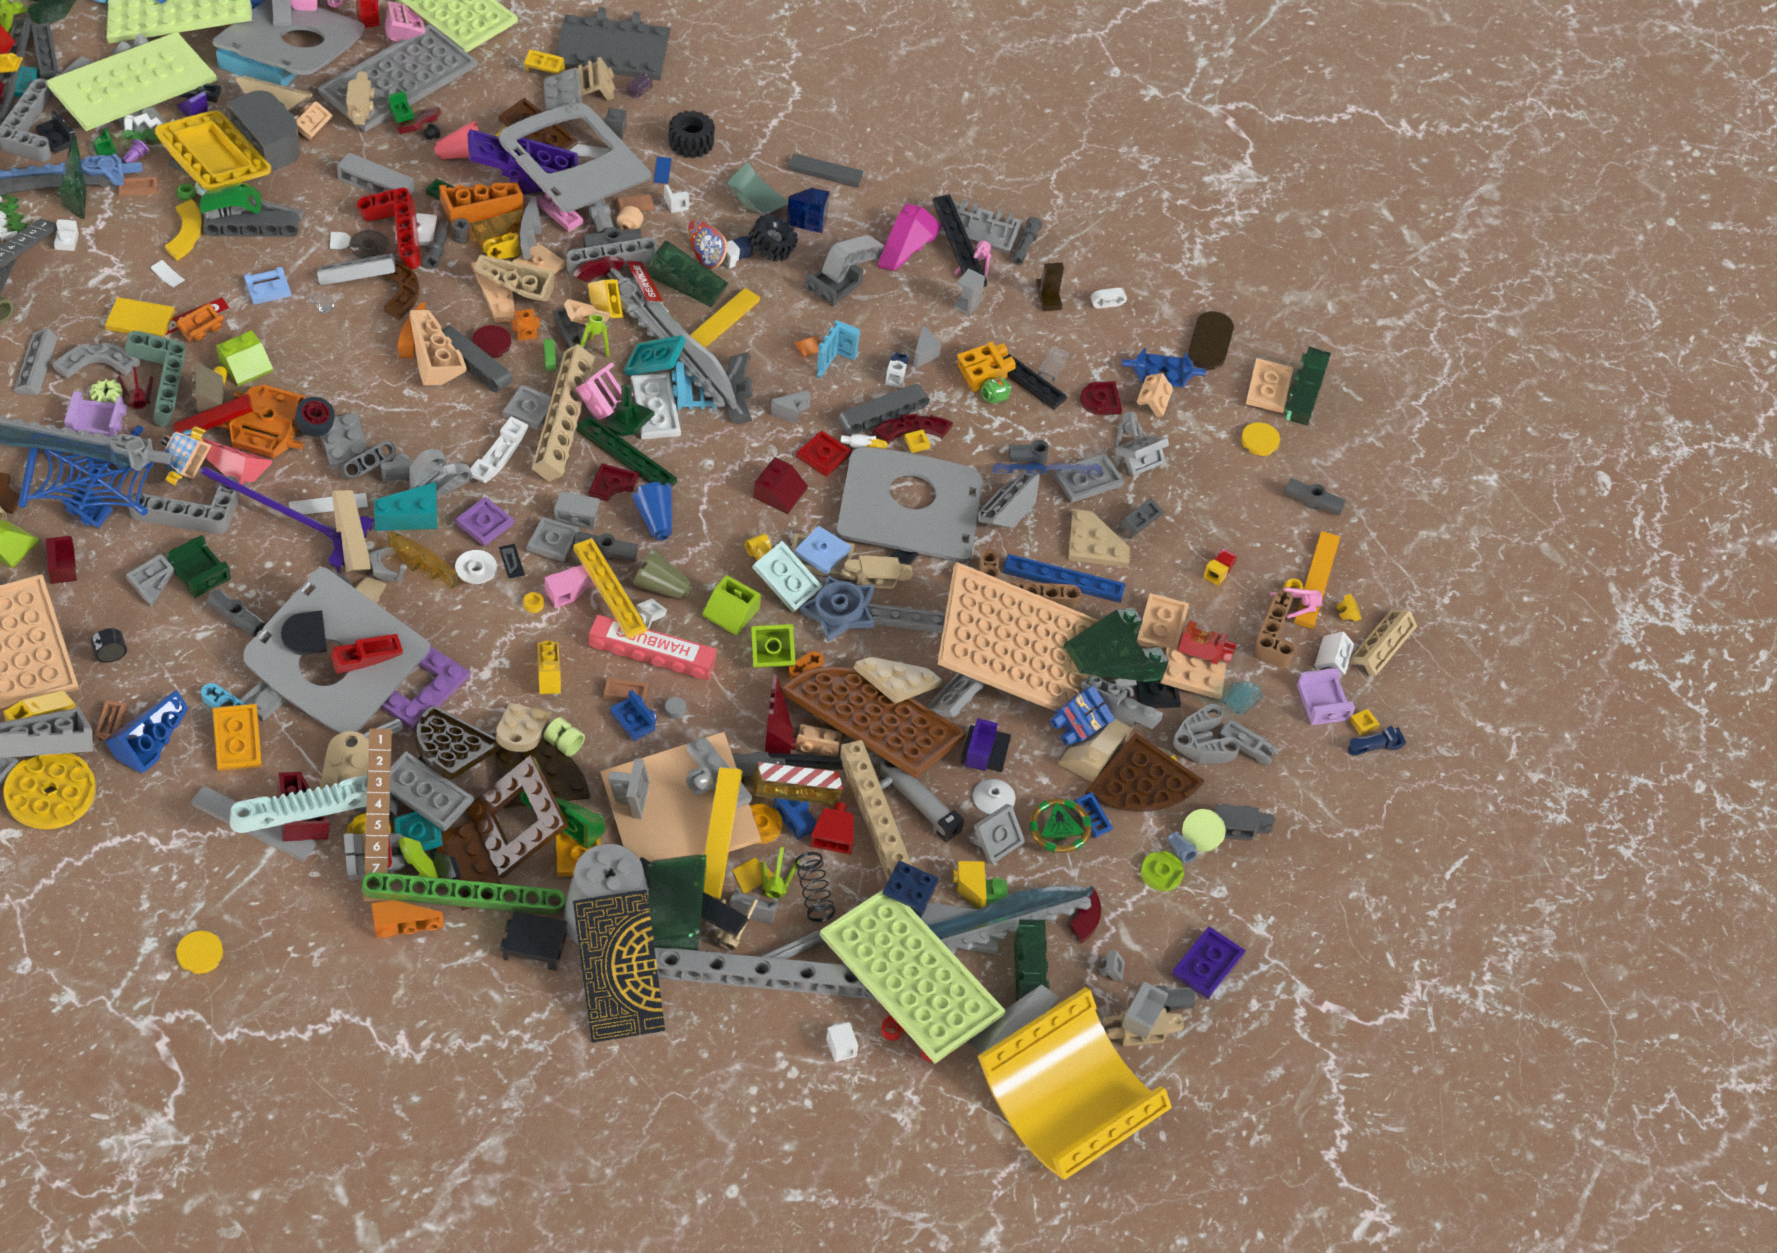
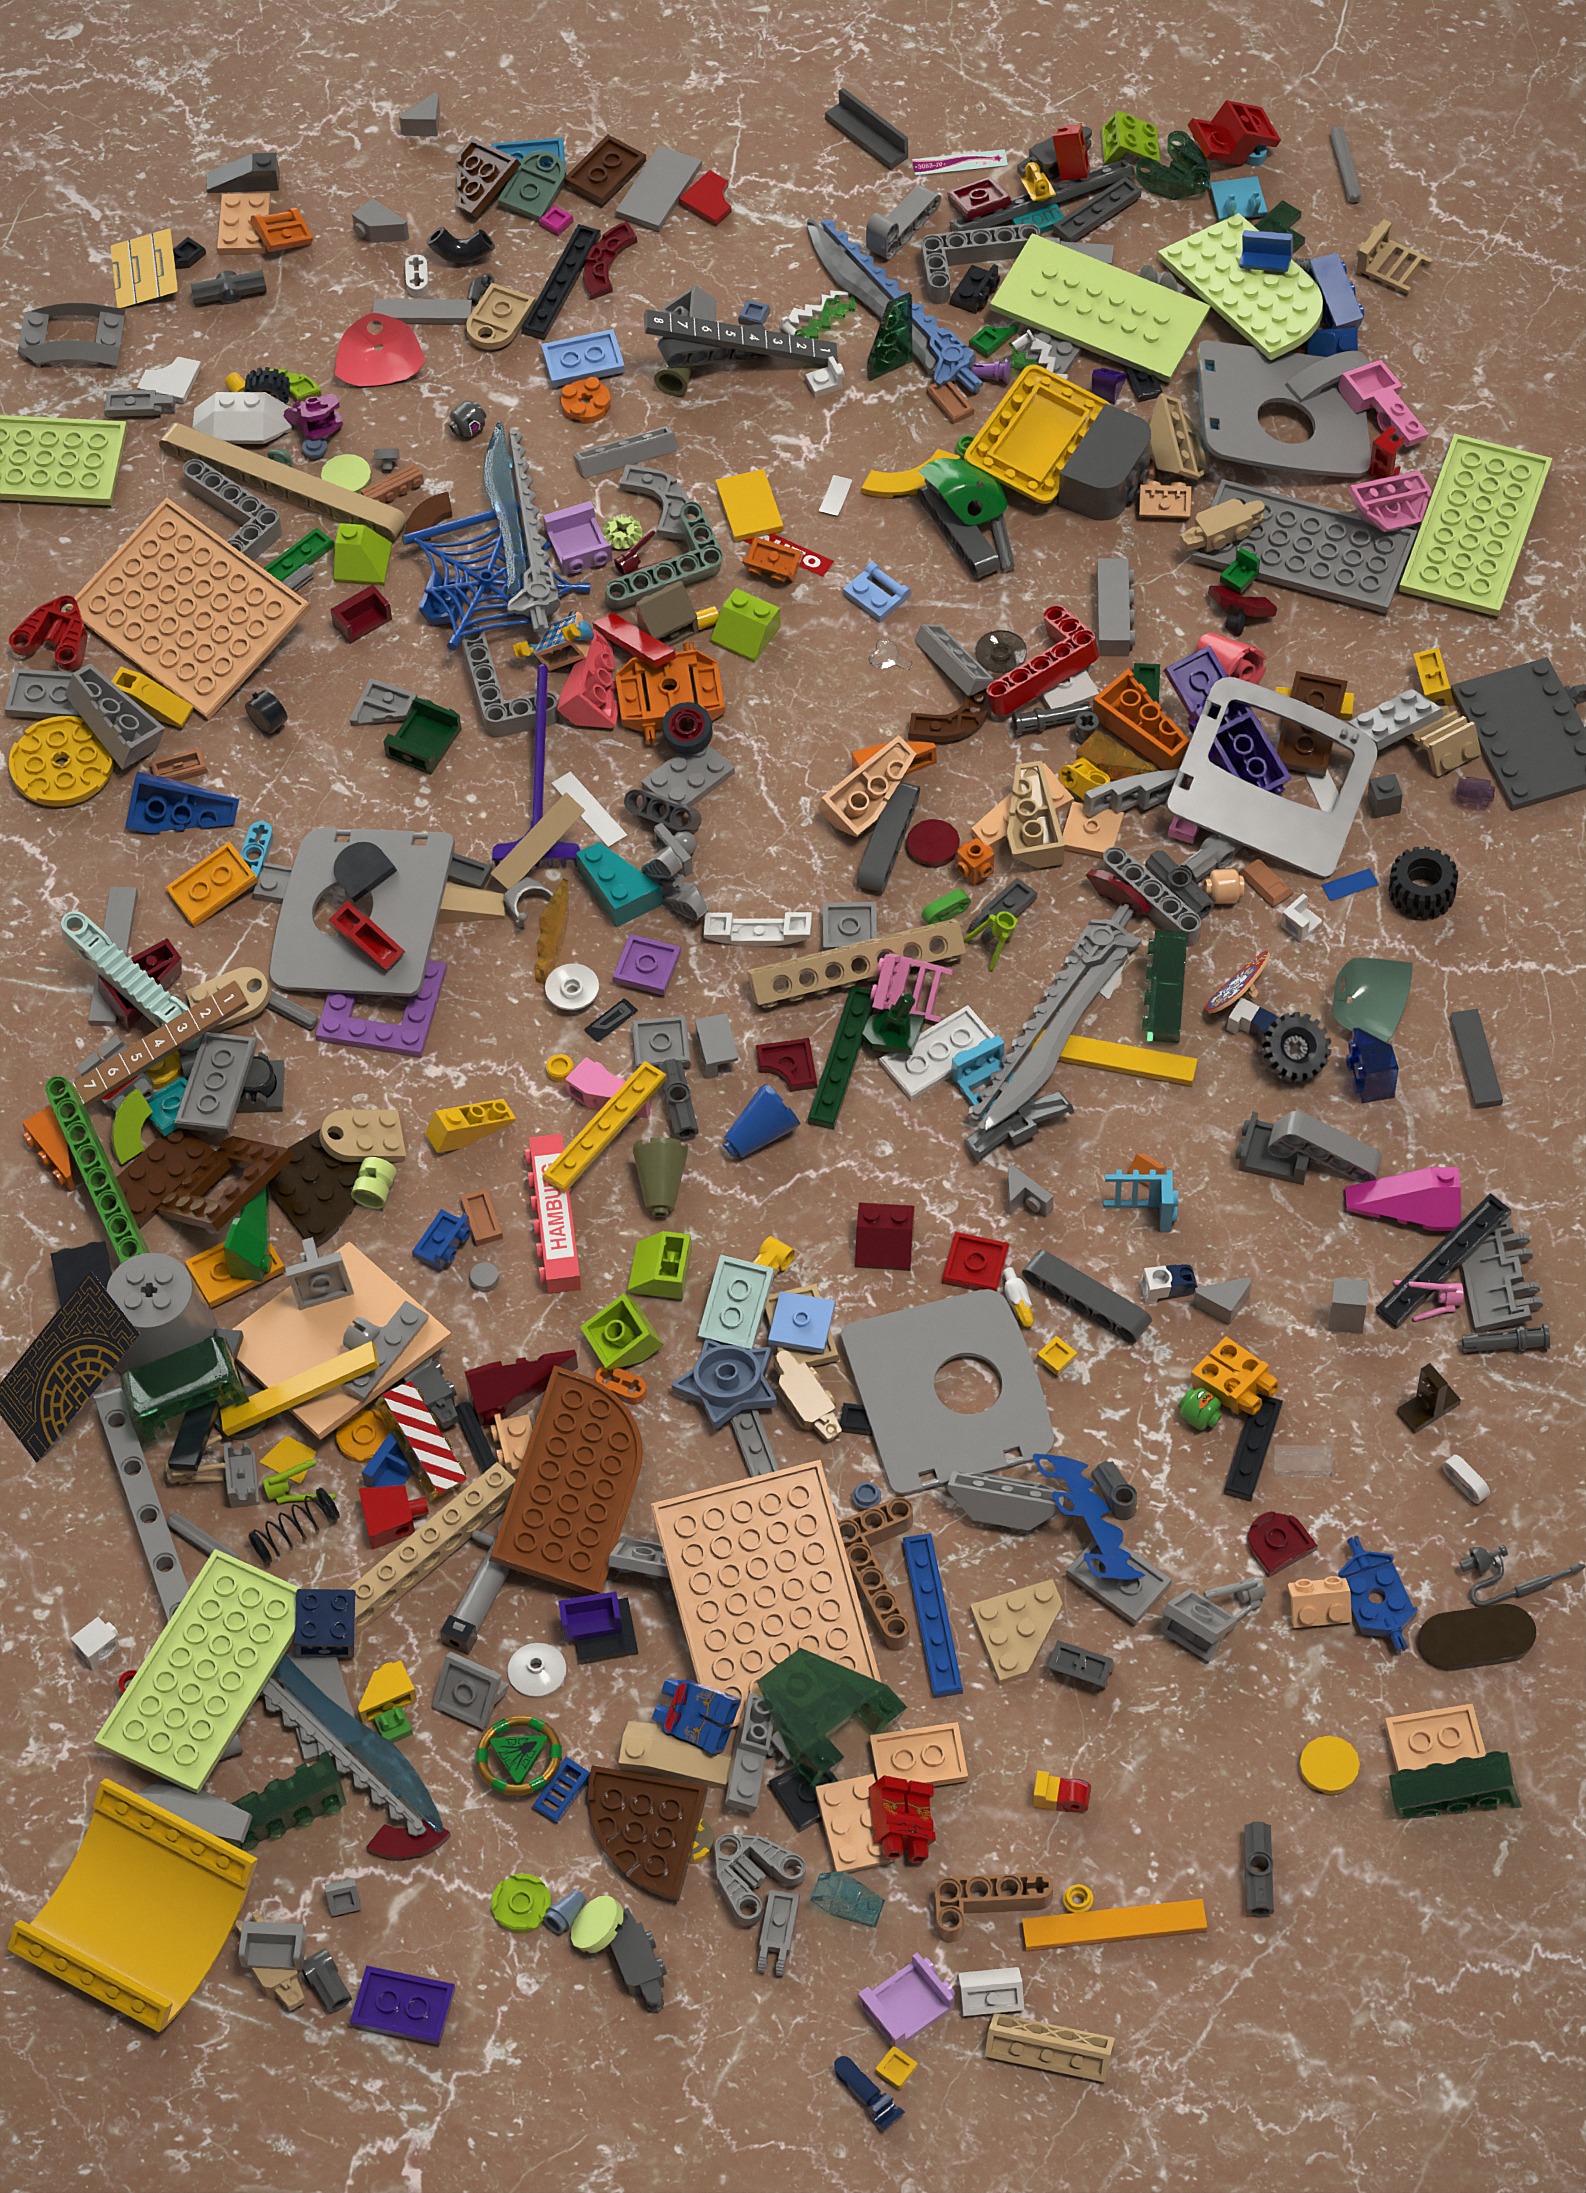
camera: 75 degrees right, 5 degrees up
(235, 612) = (377, 796): dark grey piece -> none
(339, 240) = (998, 621): white piece -> none
(445, 865) = (136, 1152): black tile -> none
(451, 743) = (295, 1076): dark brown plate -> none
(580, 312) = (1030, 910): light nougat bracket -> none
(606, 297) = (1070, 922): yellow slope -> none
(644, 281) = (1125, 948): red sticker -> none
(650, 611) = (605, 1186): white bracket -> none
(655, 355) = (1003, 1011): teal plate -> none
(897, 679) = (644, 1479): tan plate -> none
(910, 423) = (1086, 1337): dark red tile -> none
(1166, 315) = (1481, 1561): none -> dark grey piece
(1310, 598) = (1060, 1921): bright pink plant -> none
(1350, 607) = (1082, 1983): yellow tile -> none

